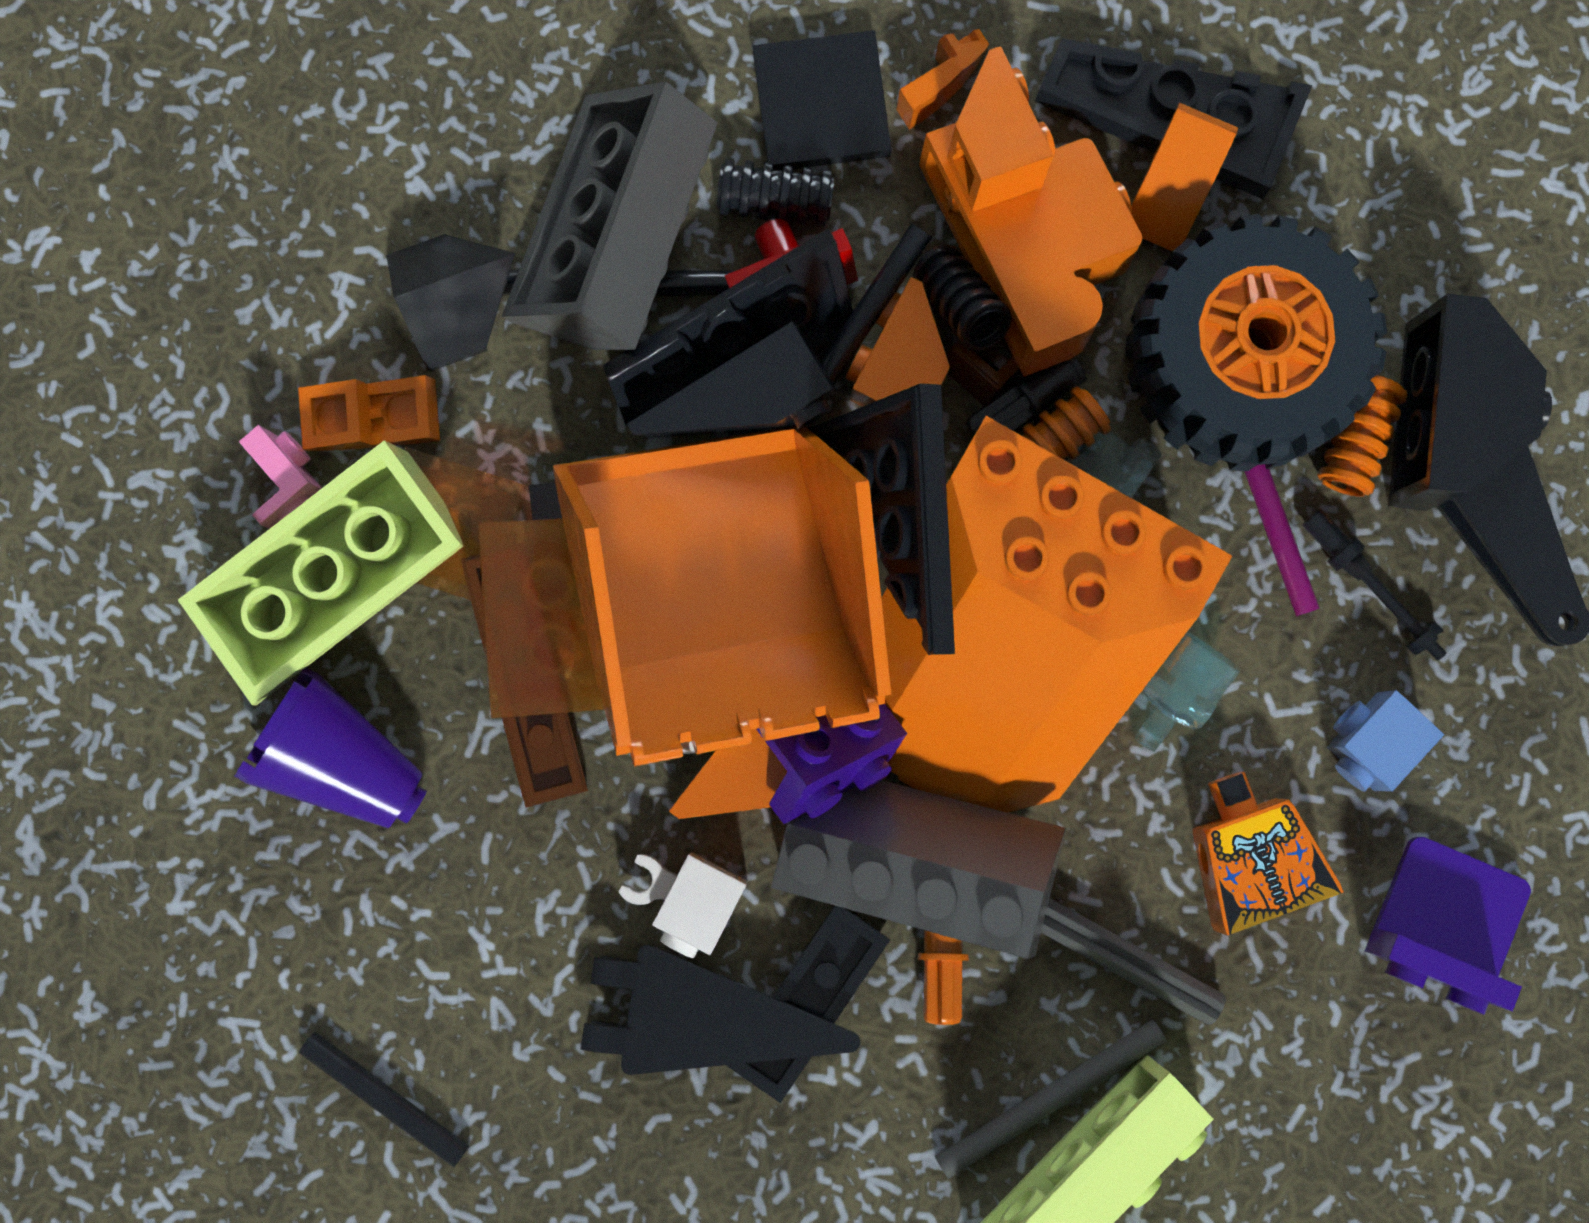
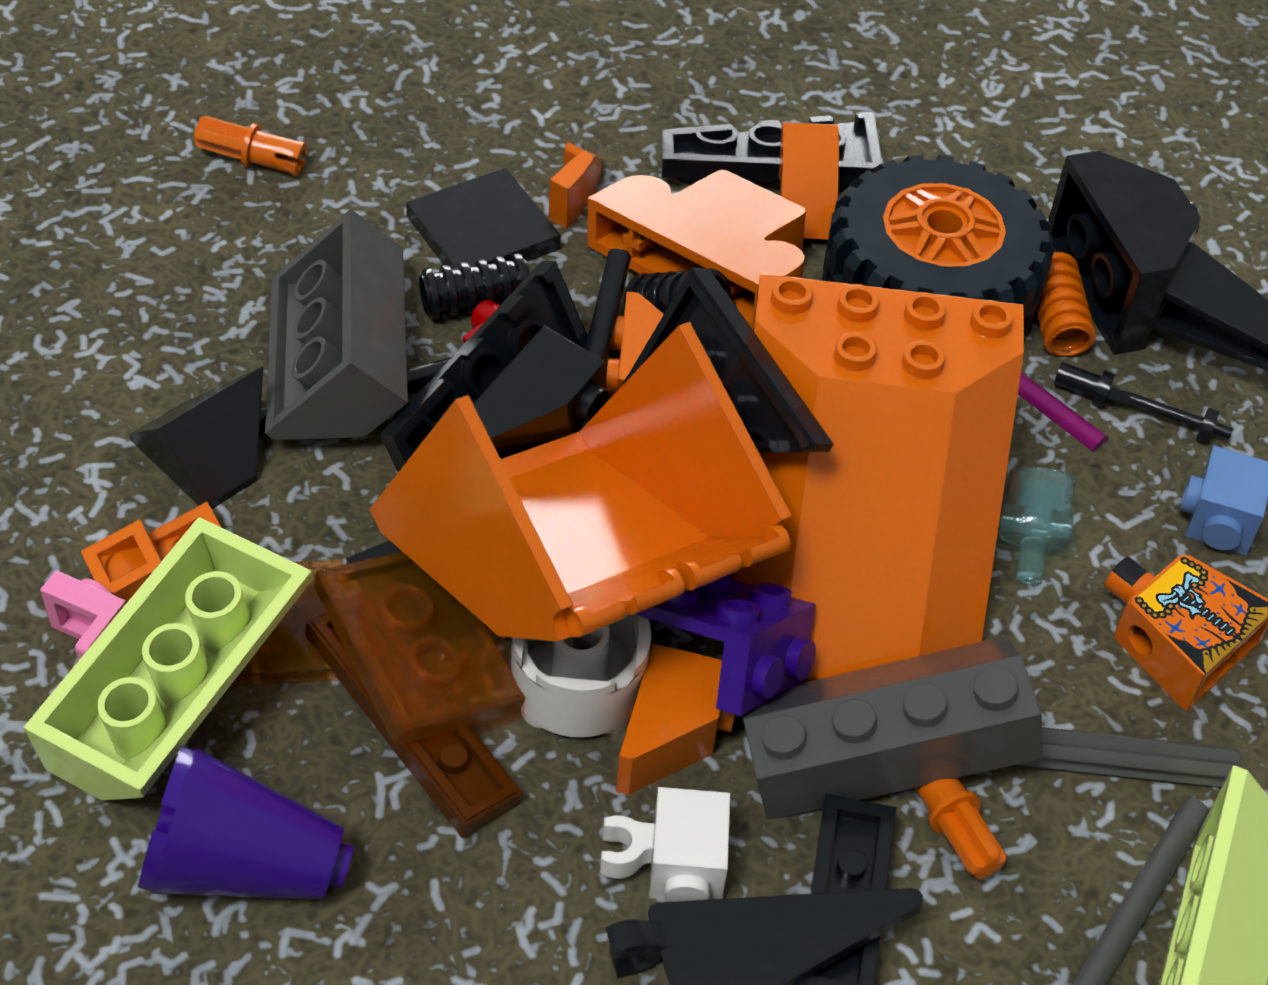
camera: 25 degrees left, 35 degrees down
(997, 140) = (655, 171): orange slope -> none

